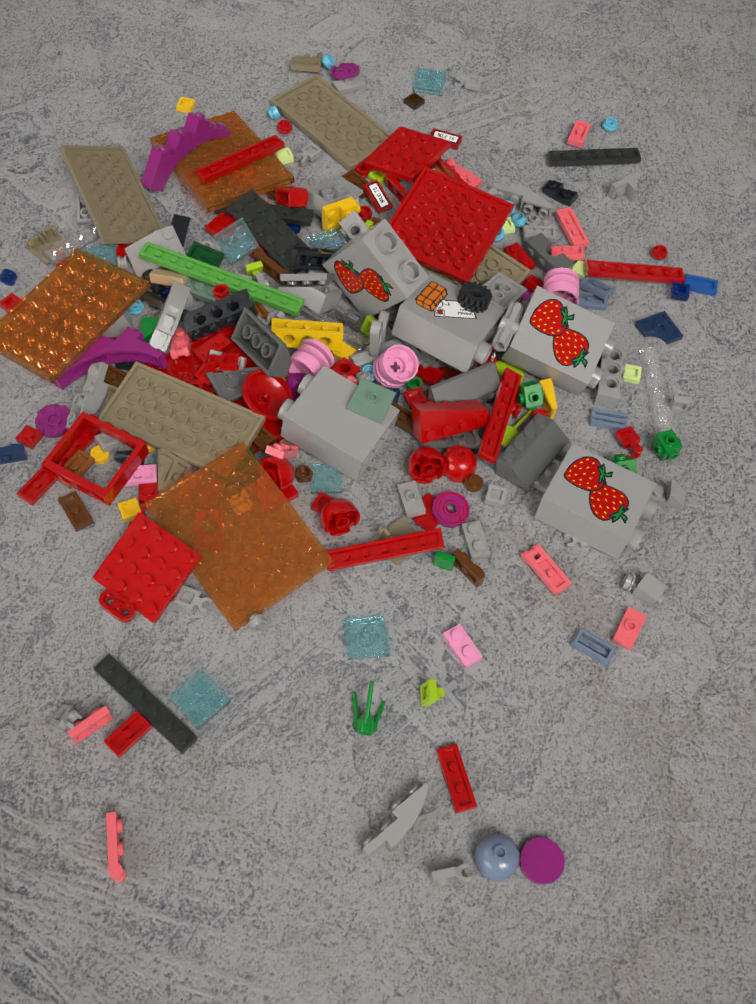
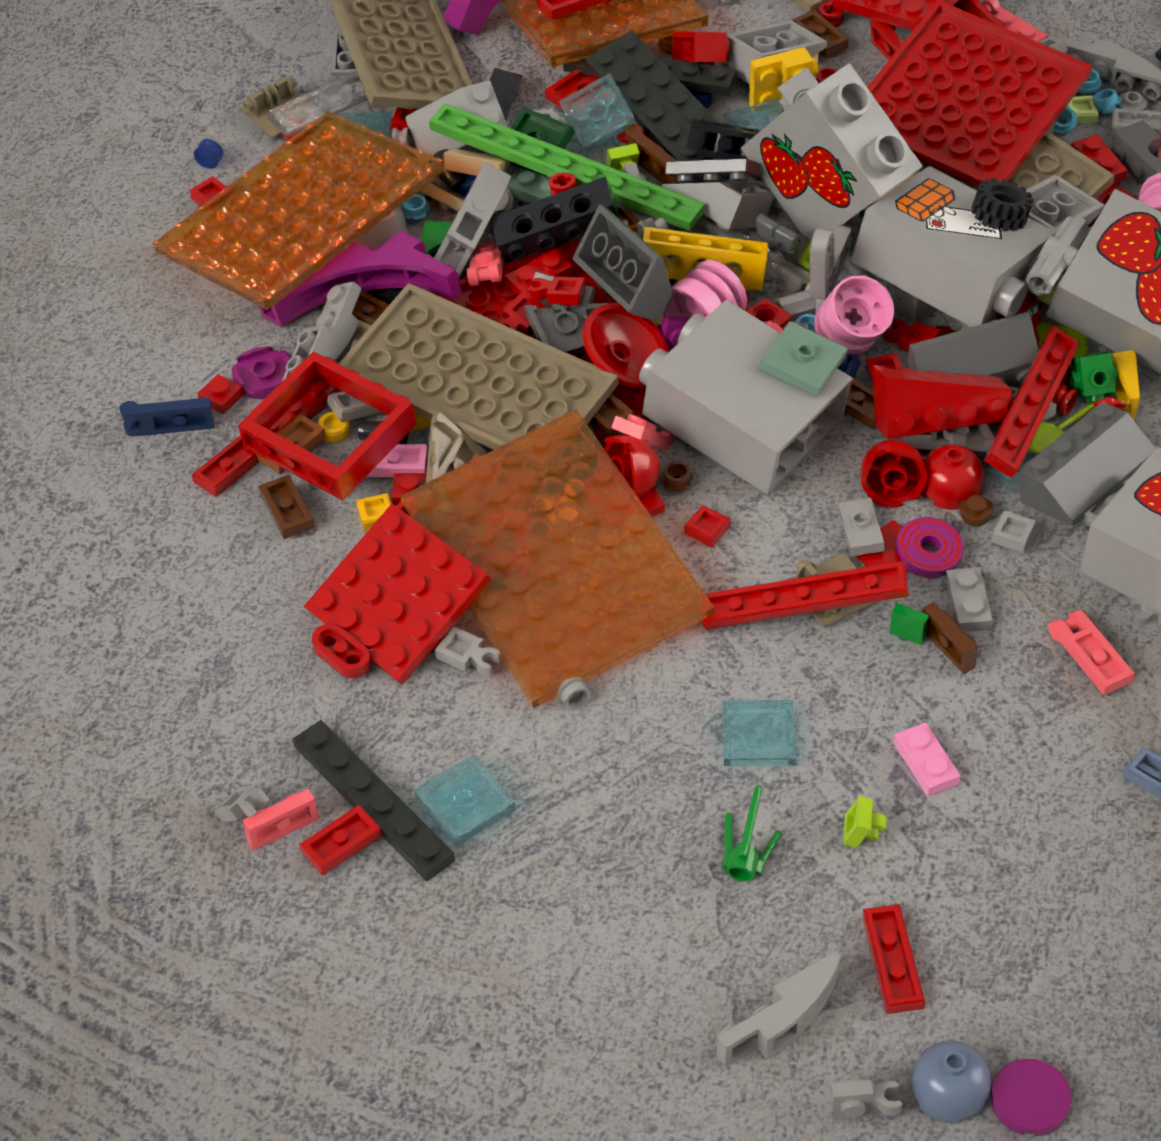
camera: 15 degrees right, 10 degrees down
(115, 847) = (304, 999): coral plate -> none
(325, 479) = (714, 488): clear light blue piece -> none
(339, 516) = (731, 541): red cylinder -> none
(346, 351) = (770, 290): yellow tile -> none
(373, 175) = (855, 26): lime tile -> none
(377, 196) = (852, 49): tile -> none
(416, 380) = (886, 346): green bush -> none

